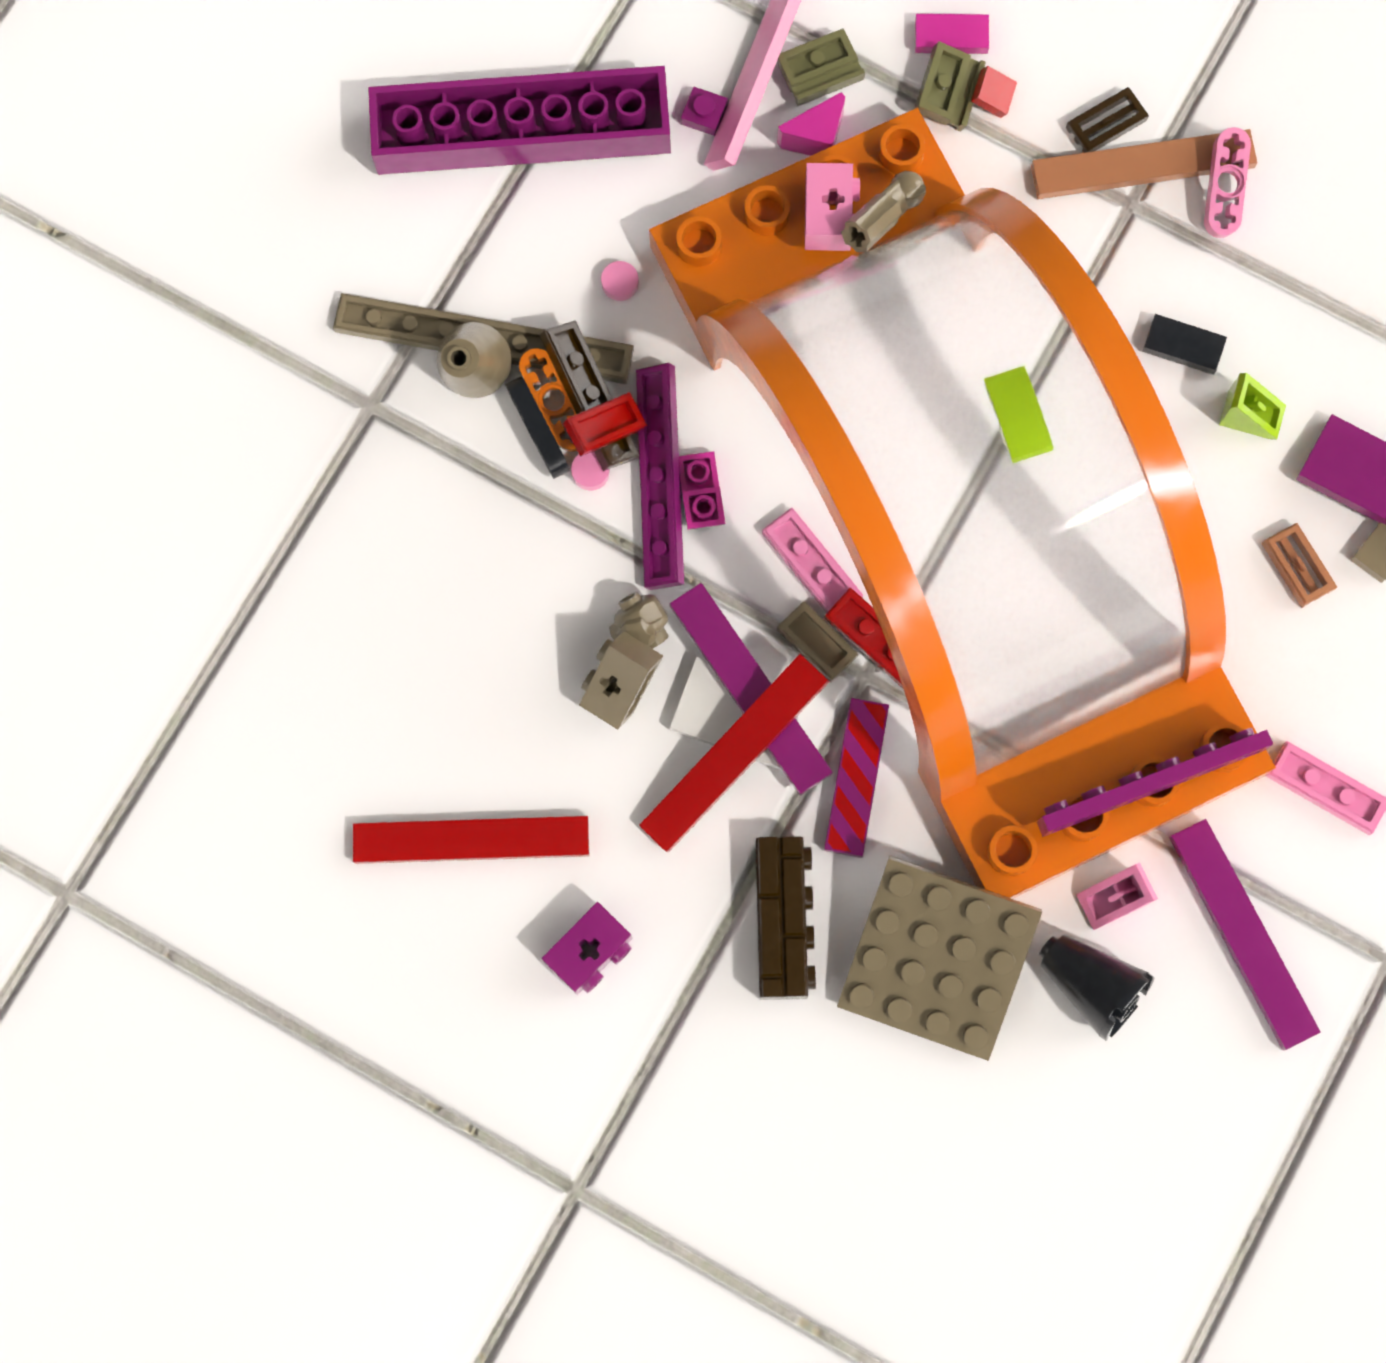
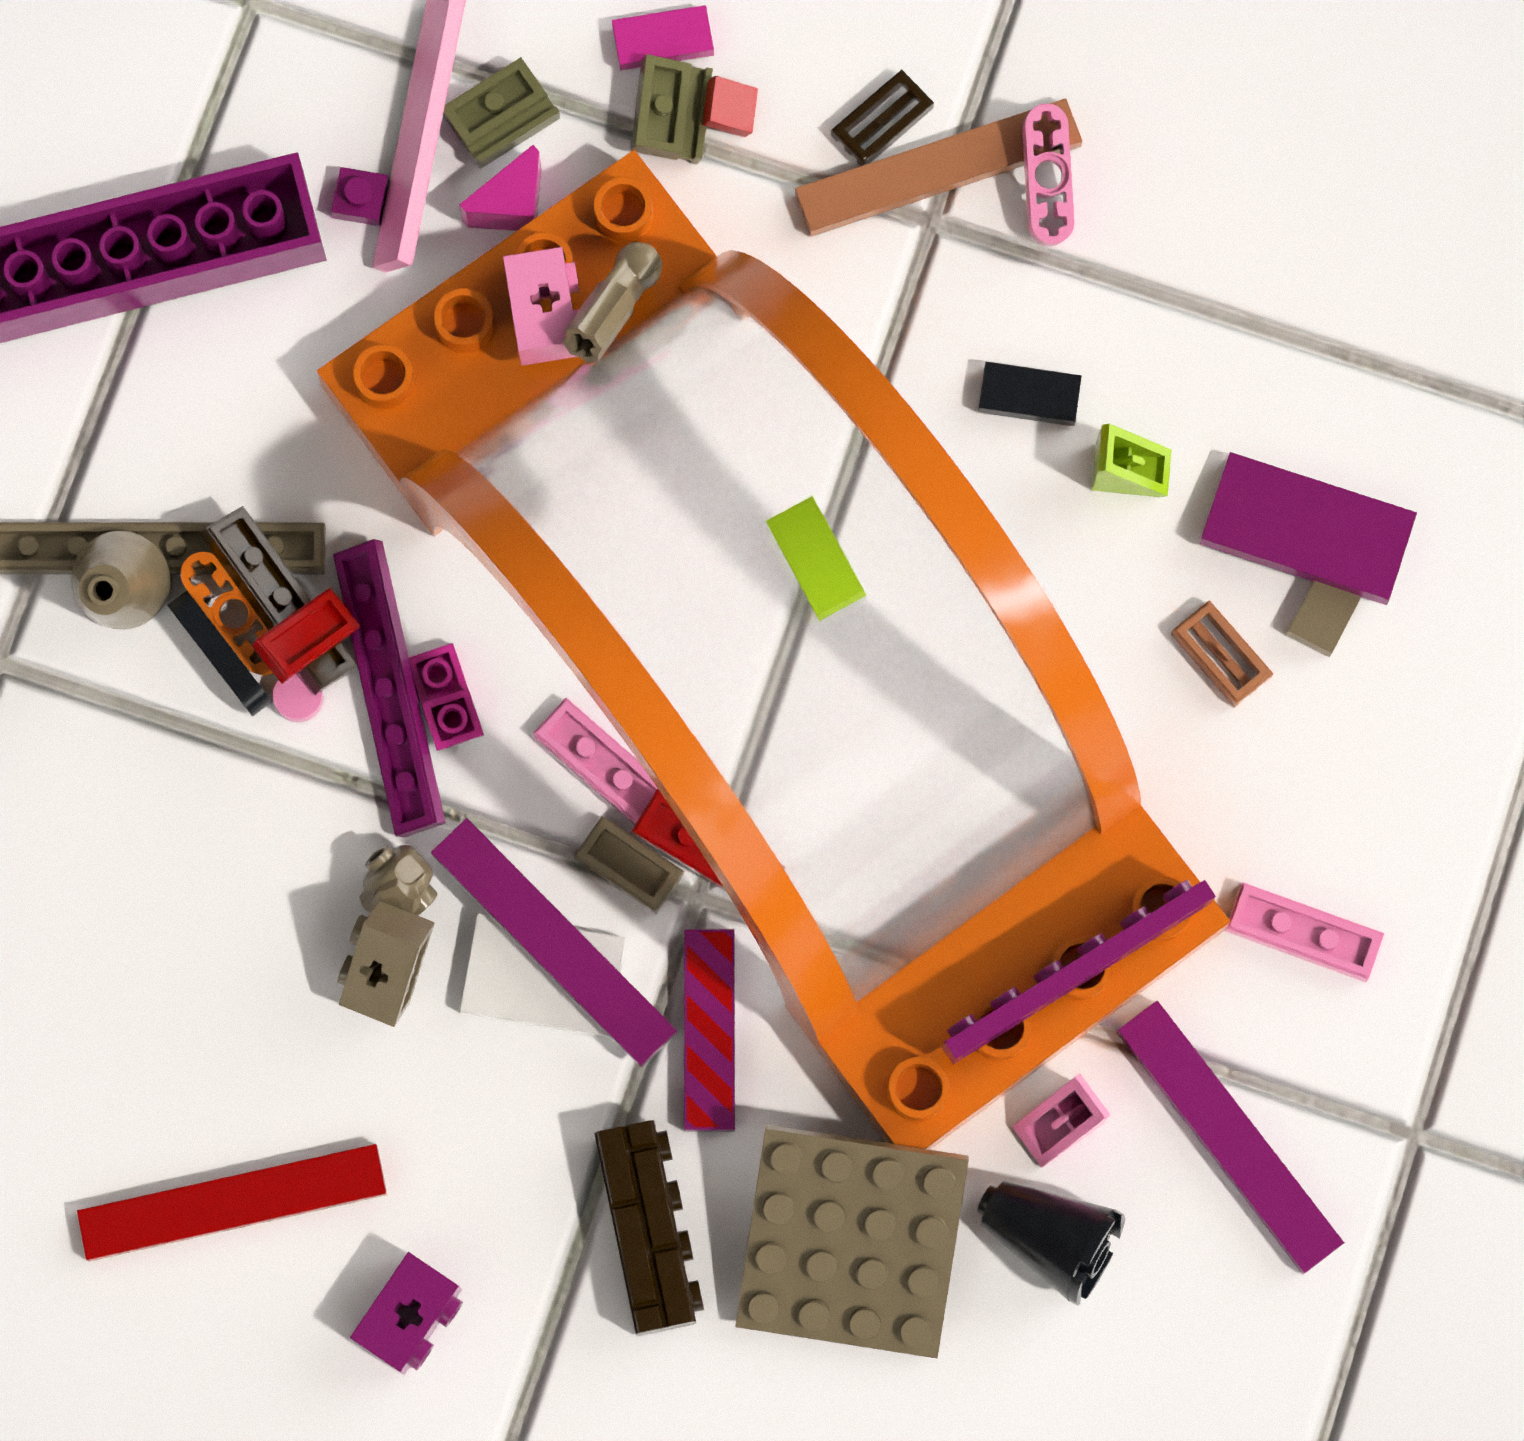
camera: 15 degrees left, 0 degrees up
(619, 280) = (291, 440): bright pink tile -> none
(734, 753) = (547, 1030): red tile -> none

